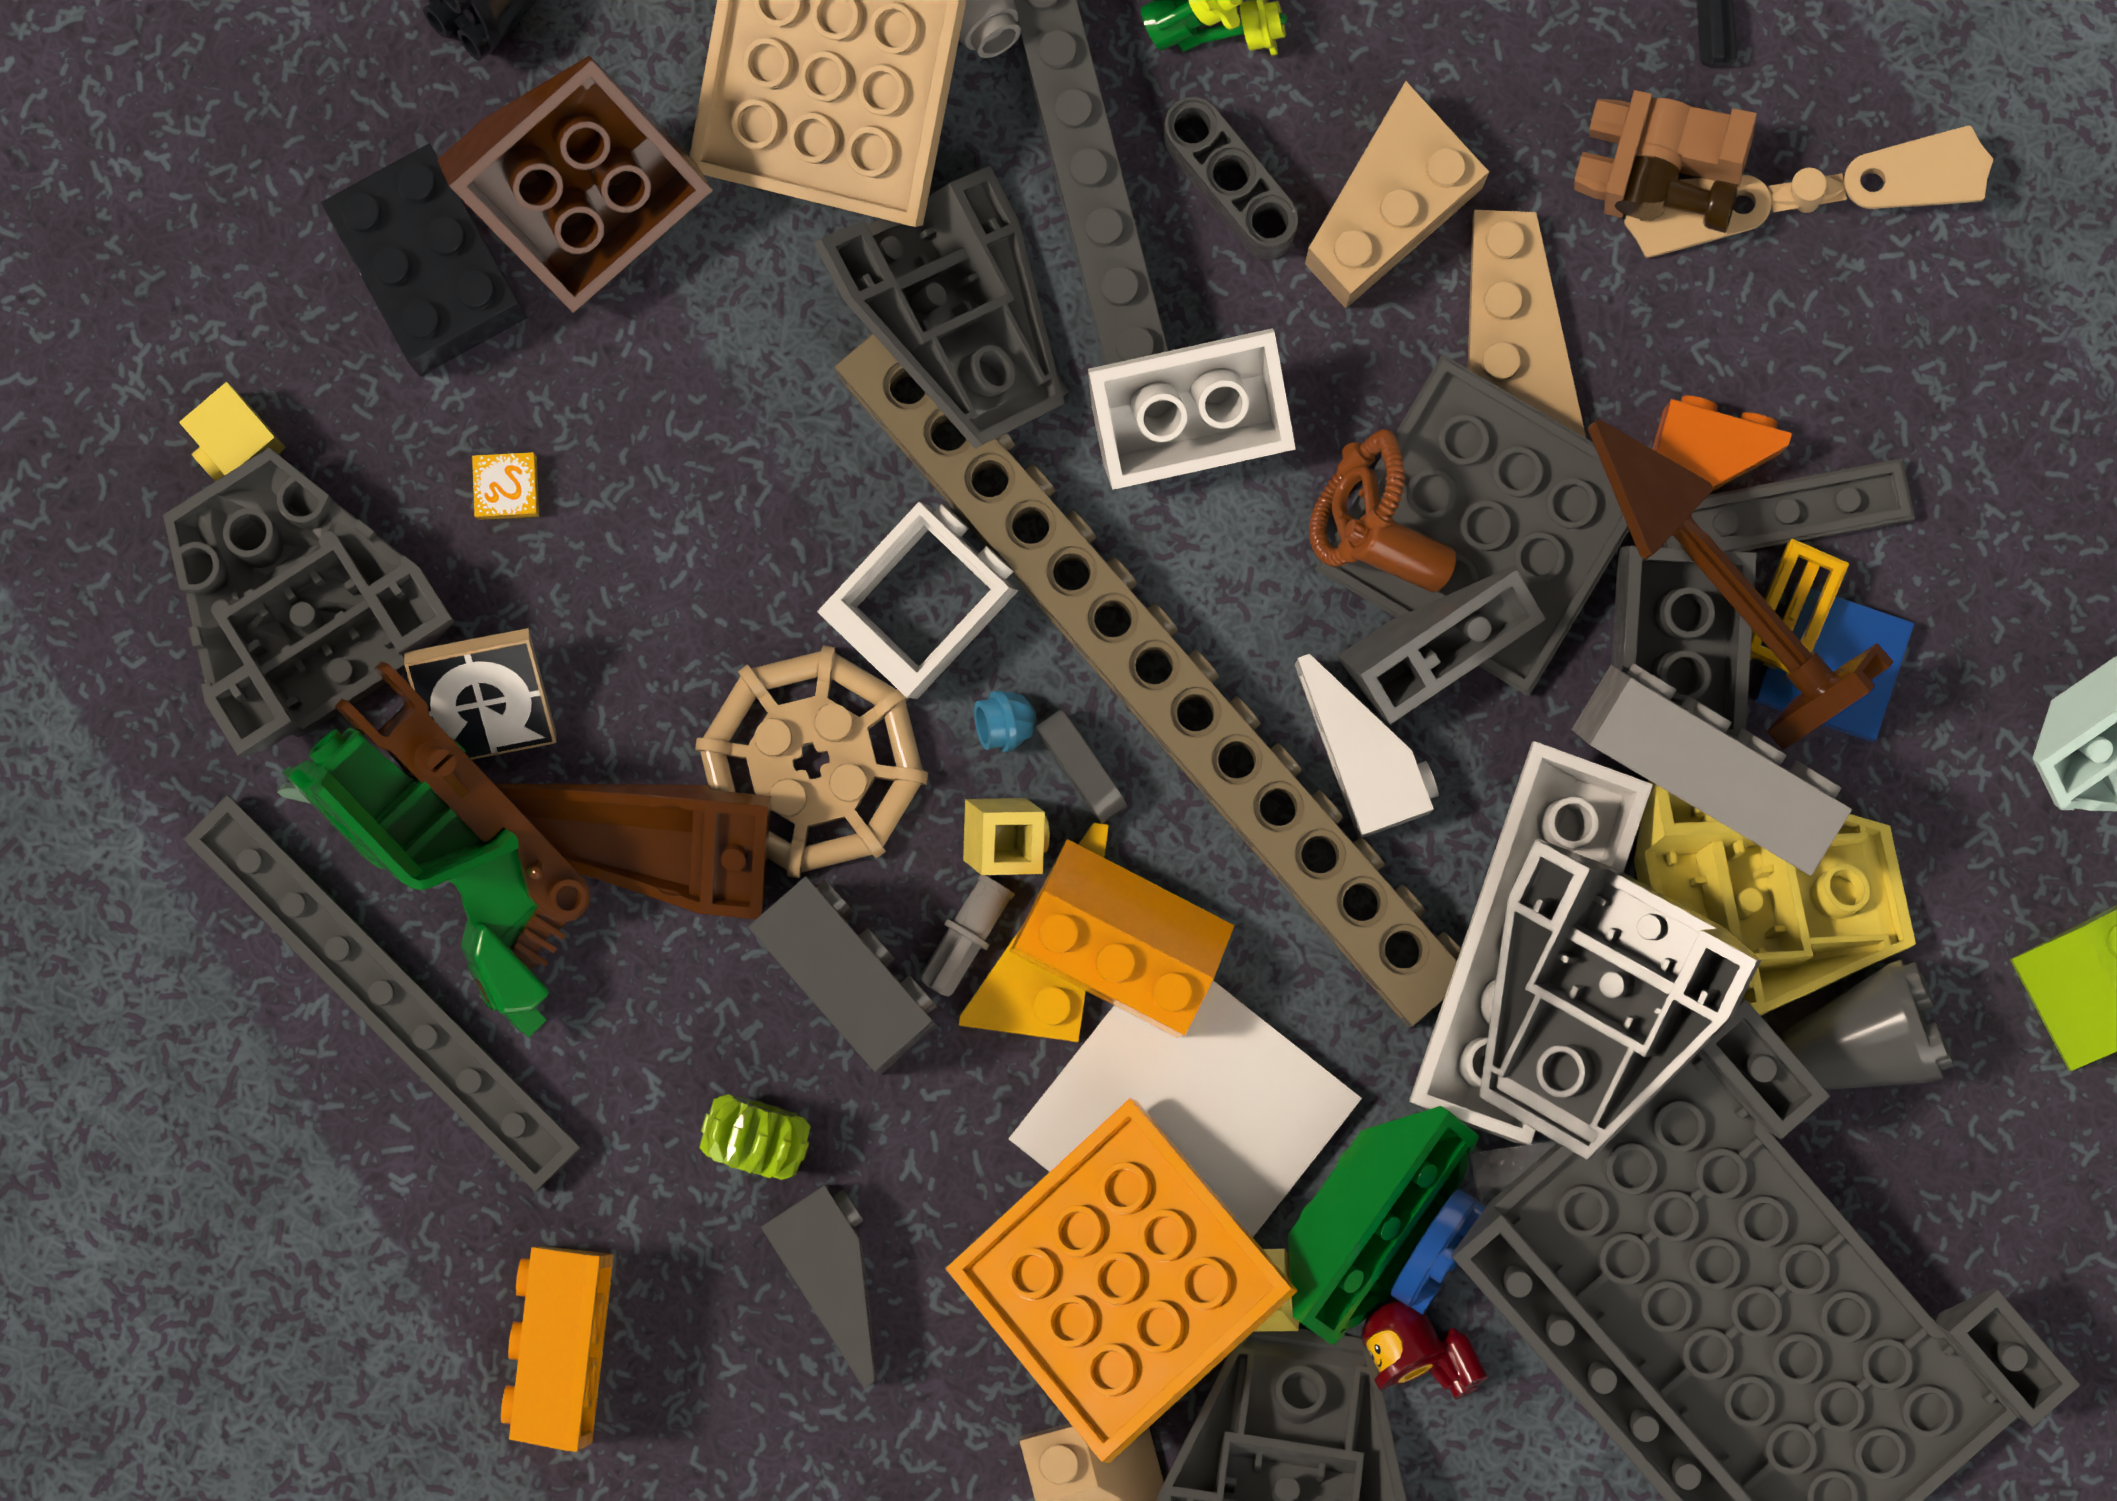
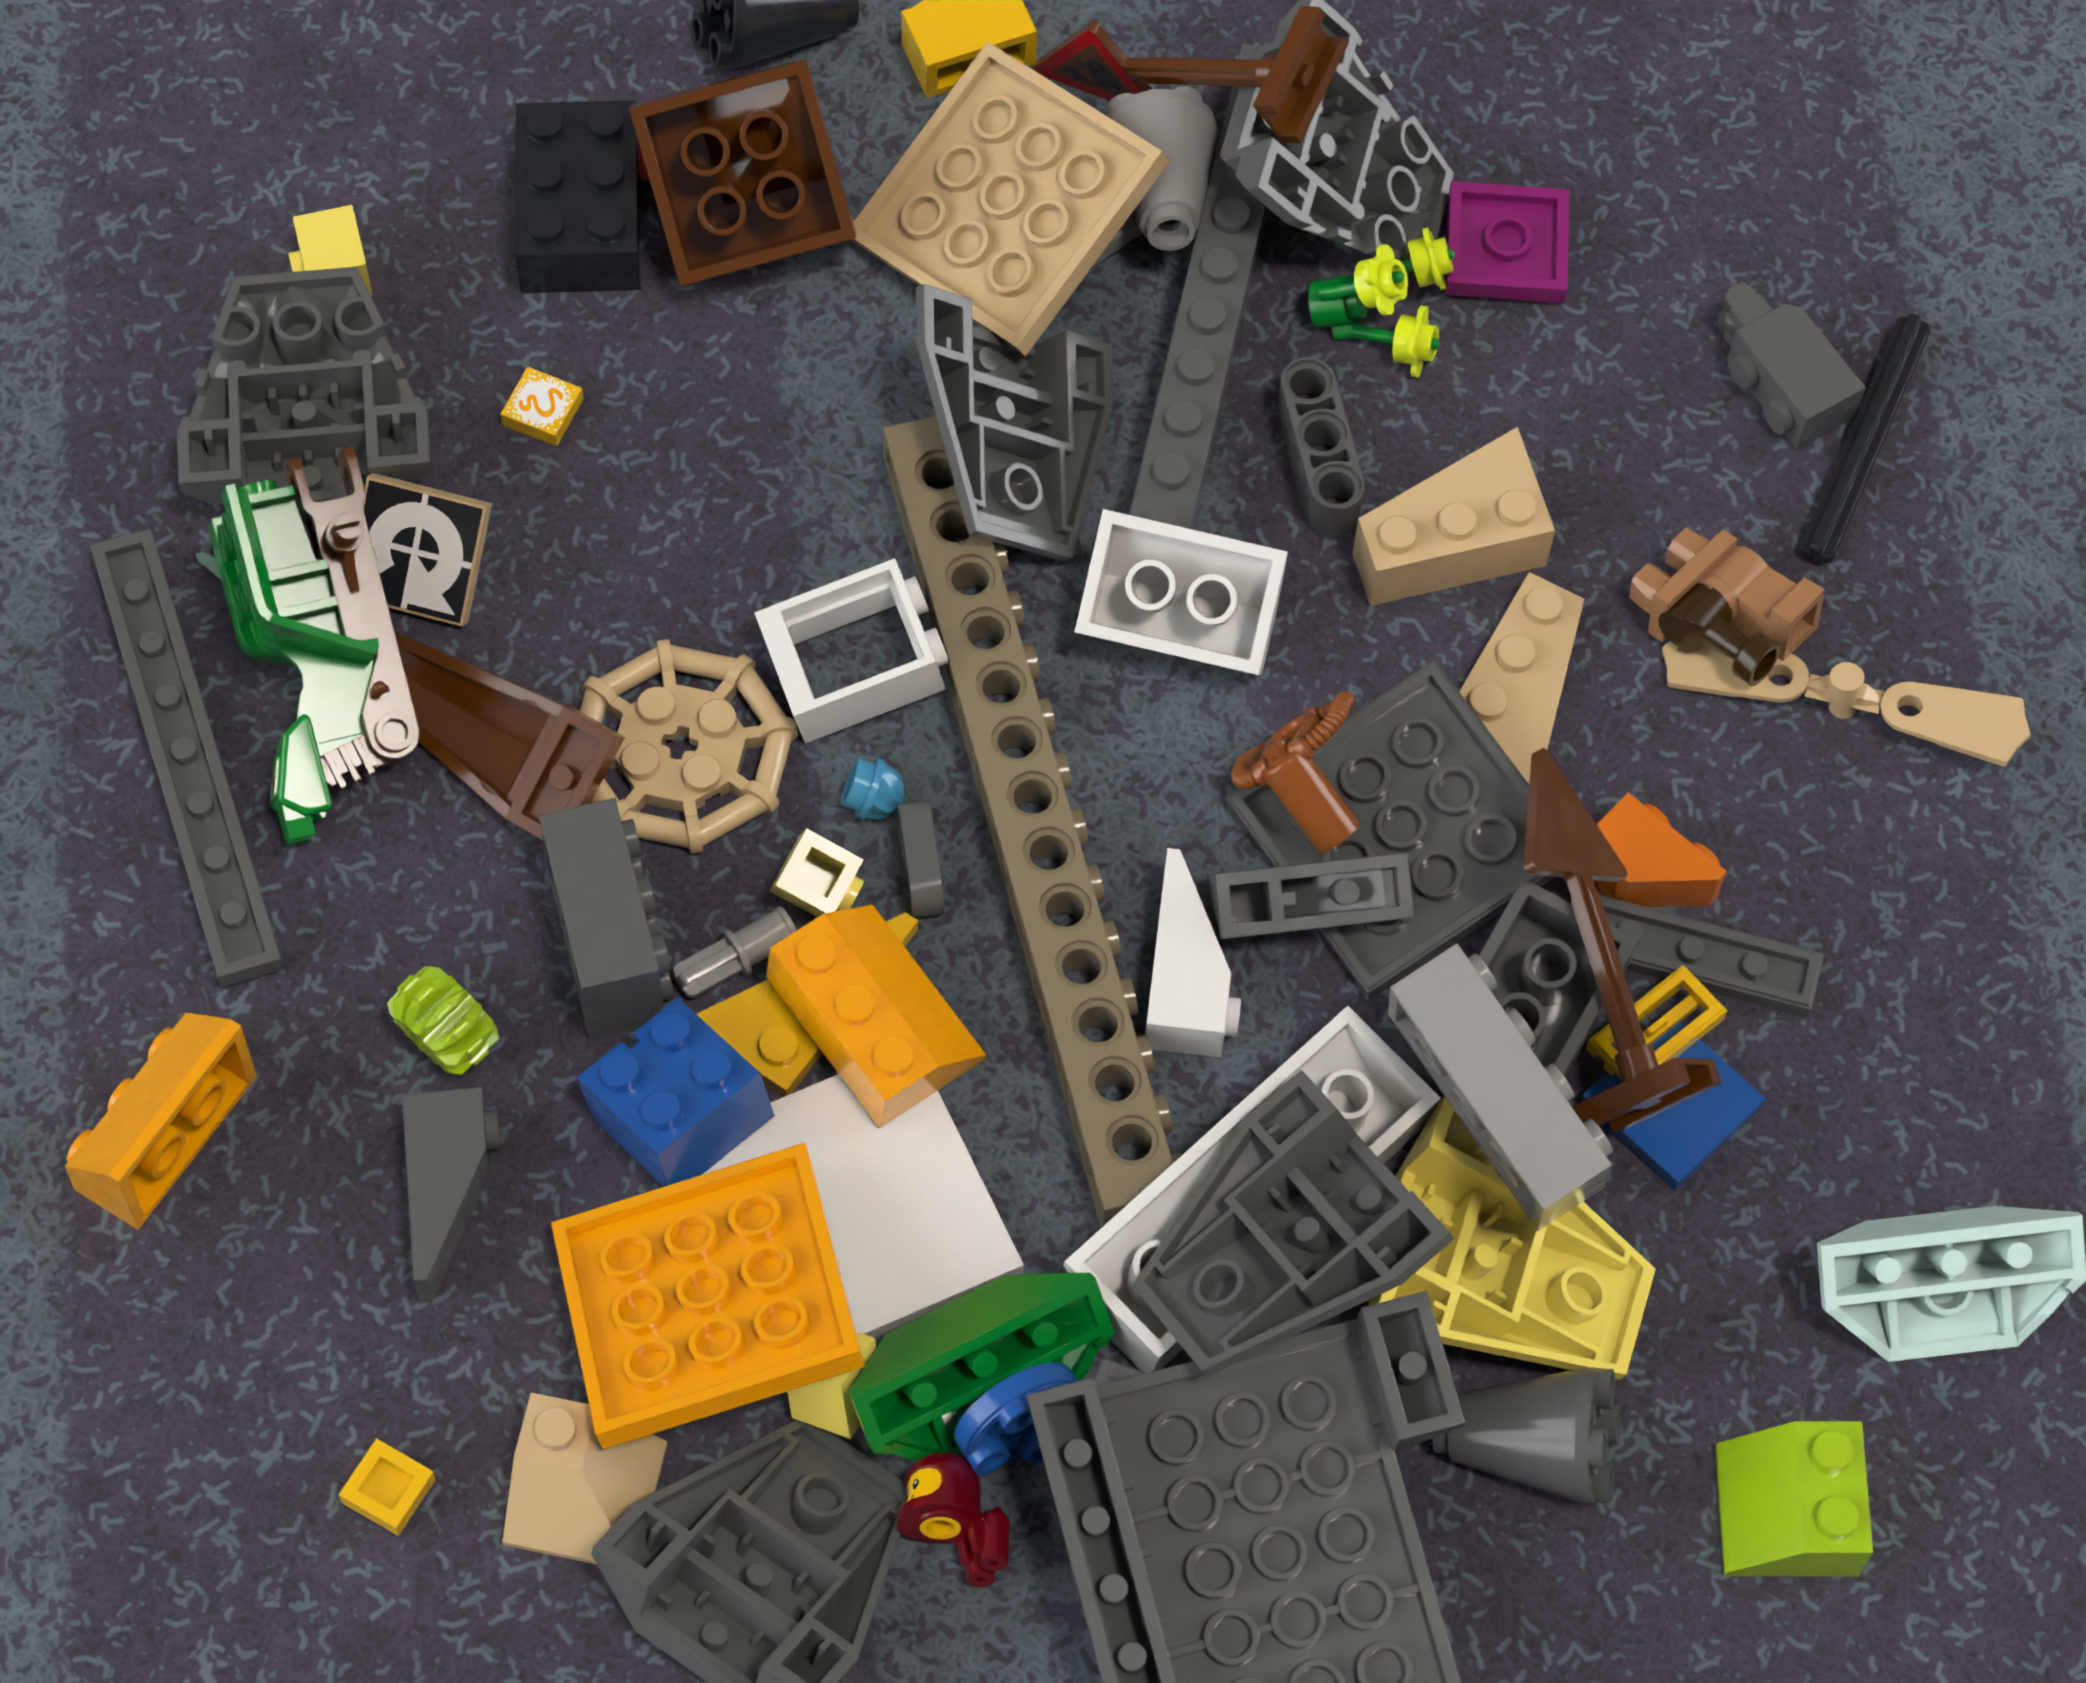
camera: 20 degrees right, 20 degrees down
(993, 1104) = (676, 1096): none -> blue piece

